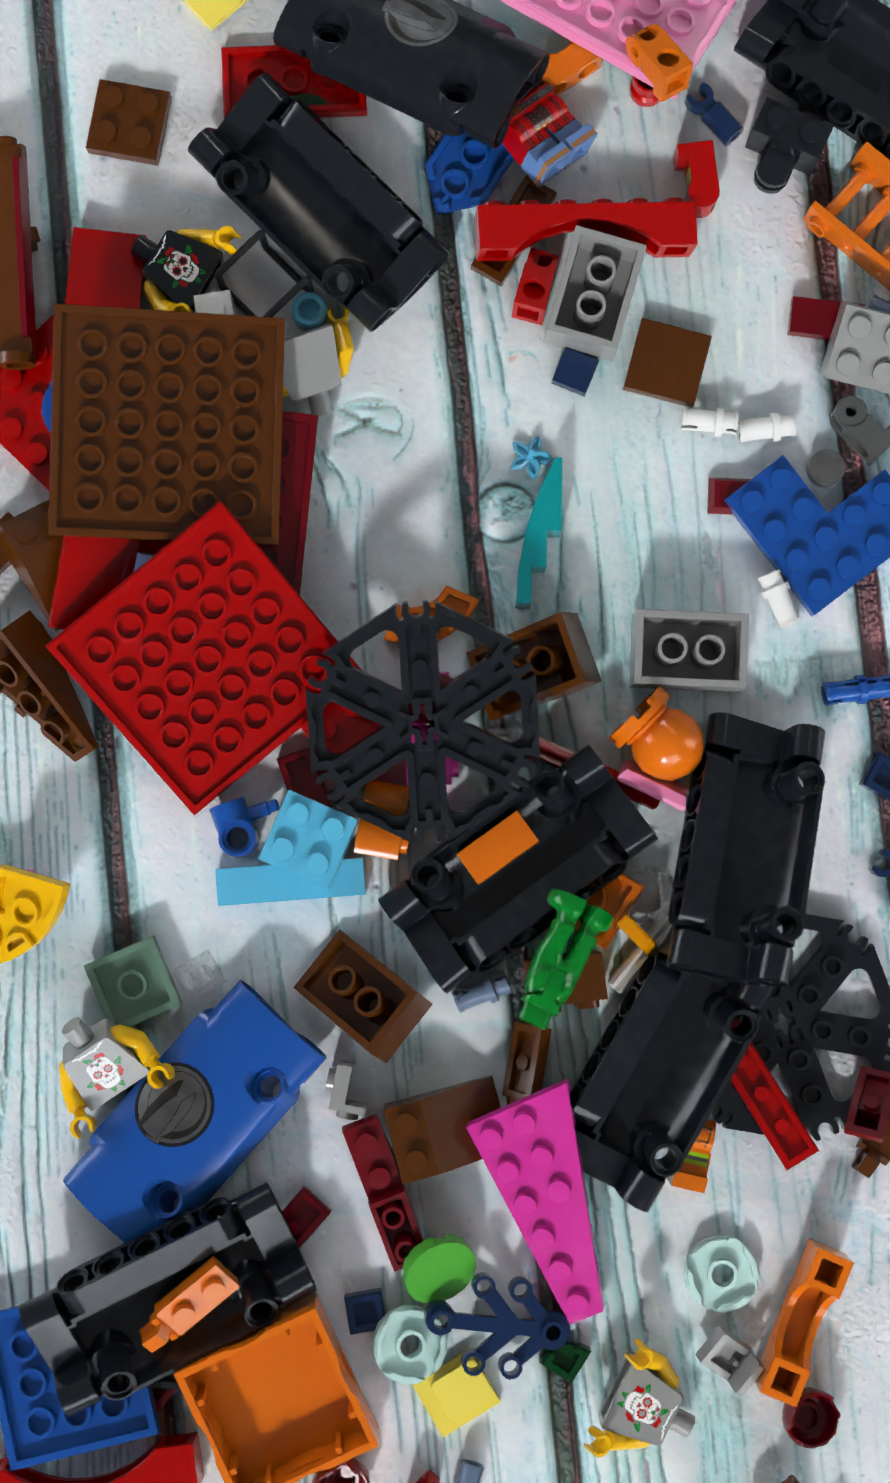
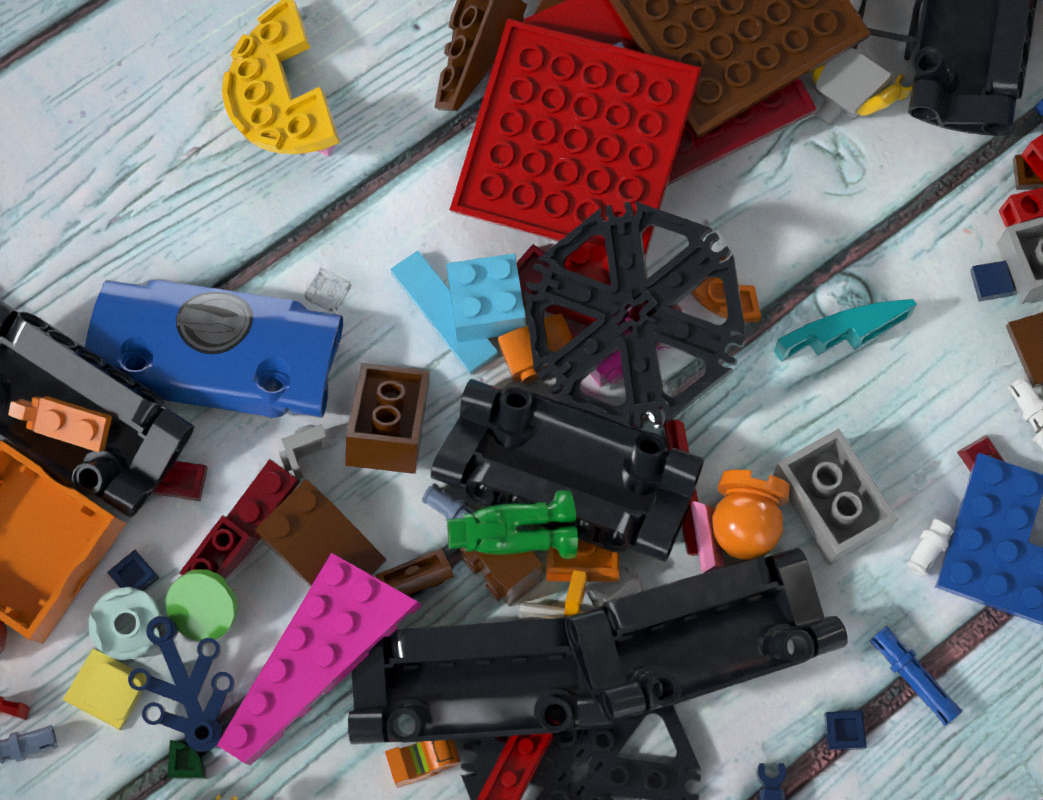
camera: 60 degrees right, 15 degrees down
(102, 1064) = (212, 253): torso -> none
(133, 983) = (289, 244): sand green plate -> none
(237, 814) = (465, 236): blue piece -> none
(309, 311) = (894, 62): medium azure tile -> none
(497, 847) = (573, 442): orange tile -> none
(530, 457) = (899, 287): medium azure plant -> none
(558, 656) = (750, 398): reddish brown slope -> none

